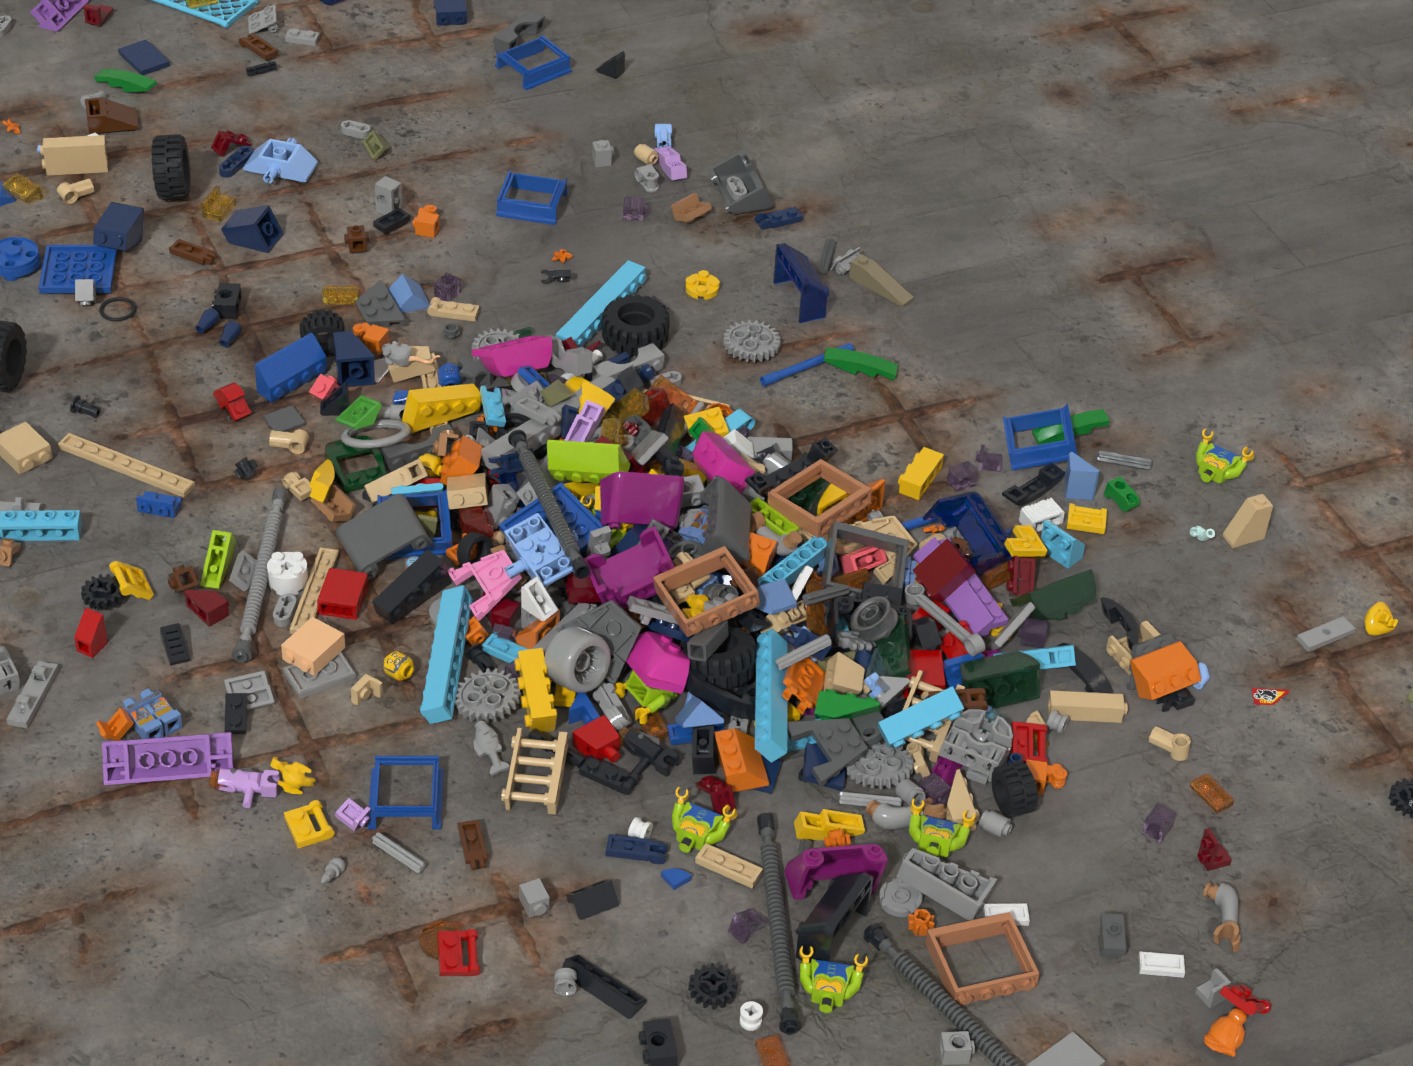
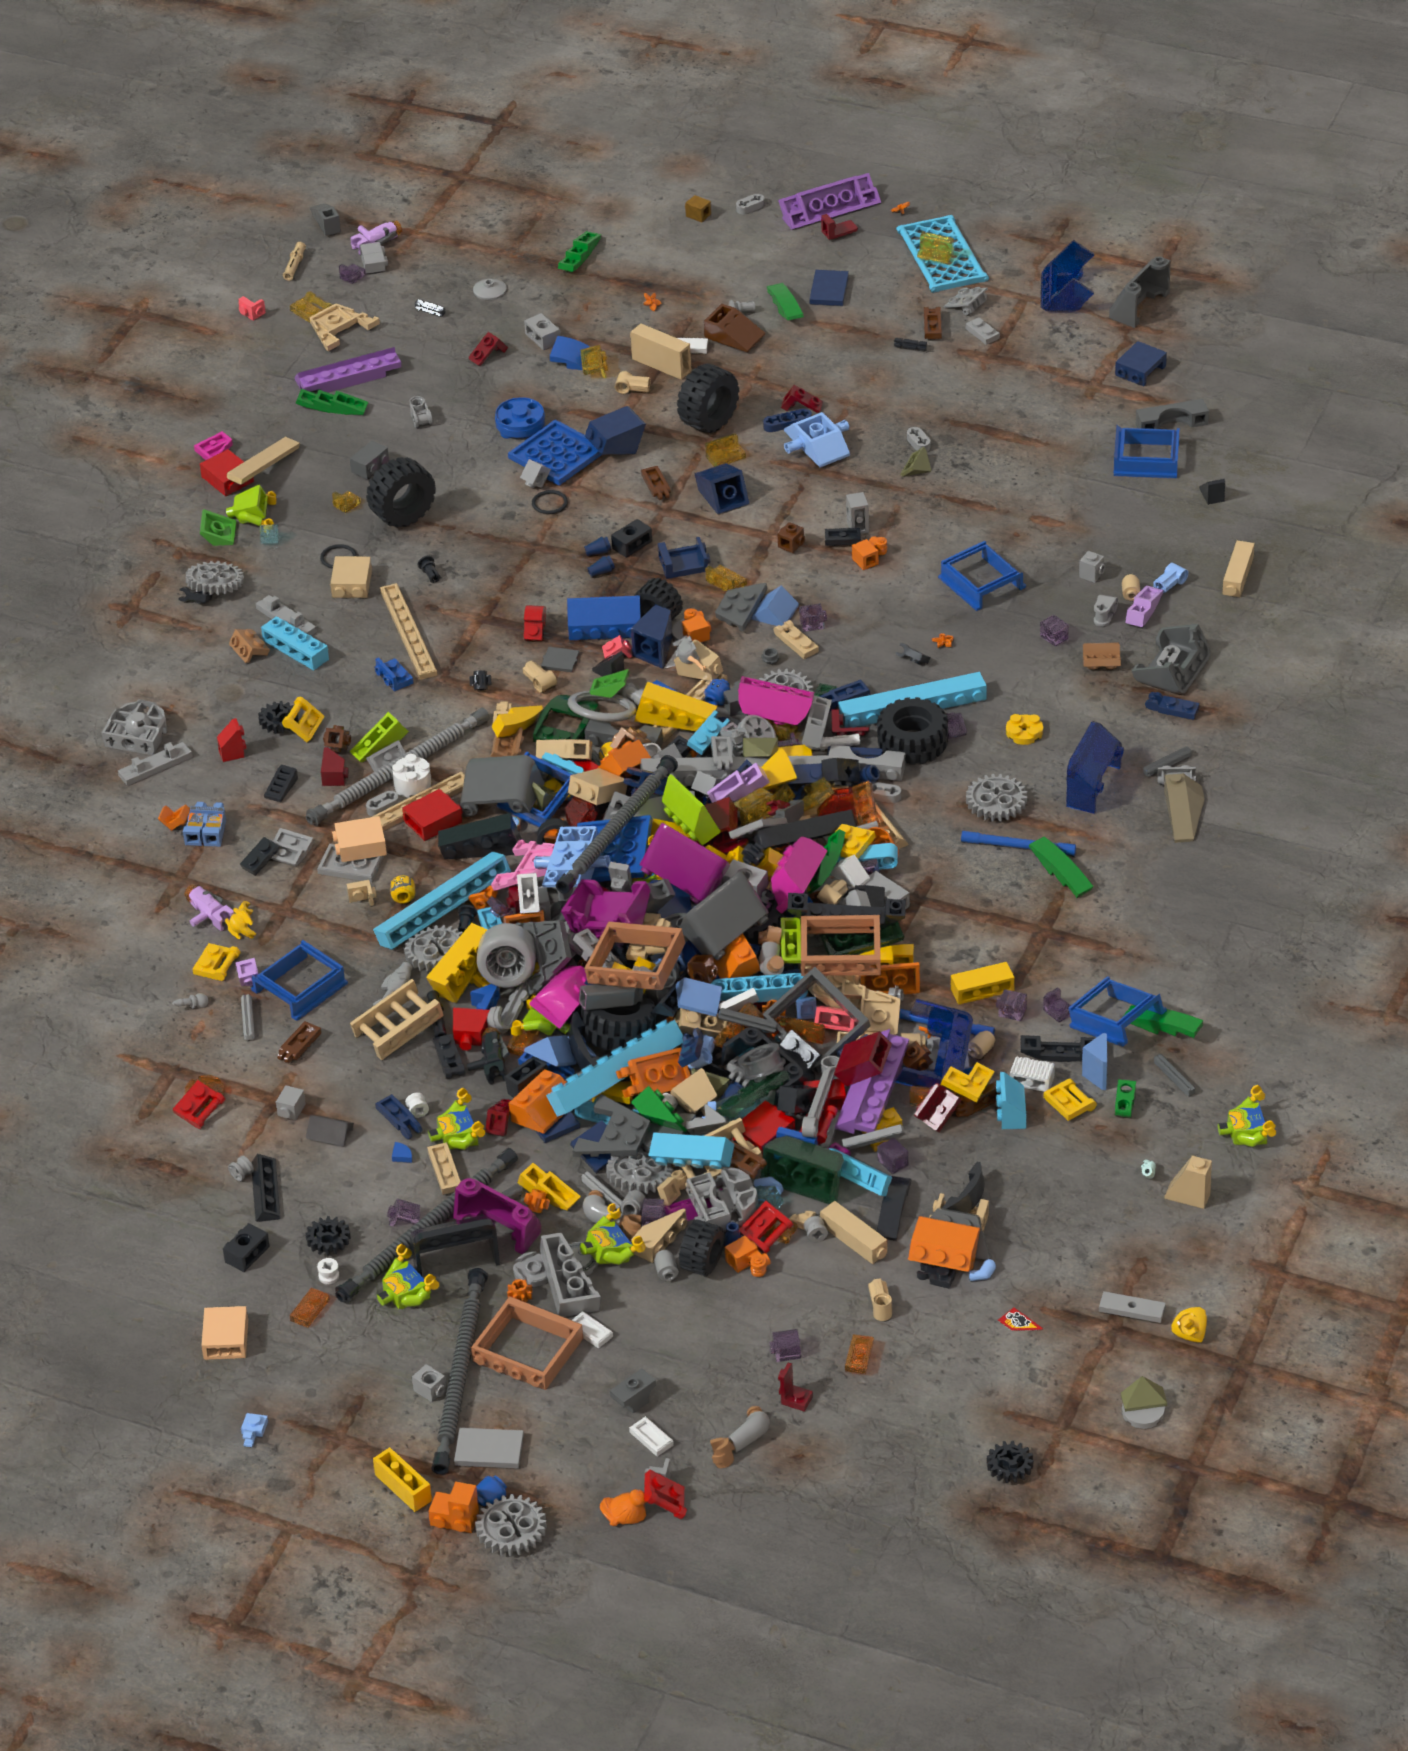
camera: 50 degrees right, 0 degrees up
(166, 758) = (180, 859): medium lavender slope -> none
(289, 296) = (683, 560): none -> dark blue panel
(532, 375) = (761, 727): blue tile -> none
(544, 437) = (705, 782): none -> light grey panel
(547, 324) = (846, 692): none -> dark blue hinge
(700, 108) = (1238, 568): none -> tan brick
(803, 652) = (666, 1048): light grey axle -> none
(1060, 597) = (942, 1139): clear green windscreen -> none

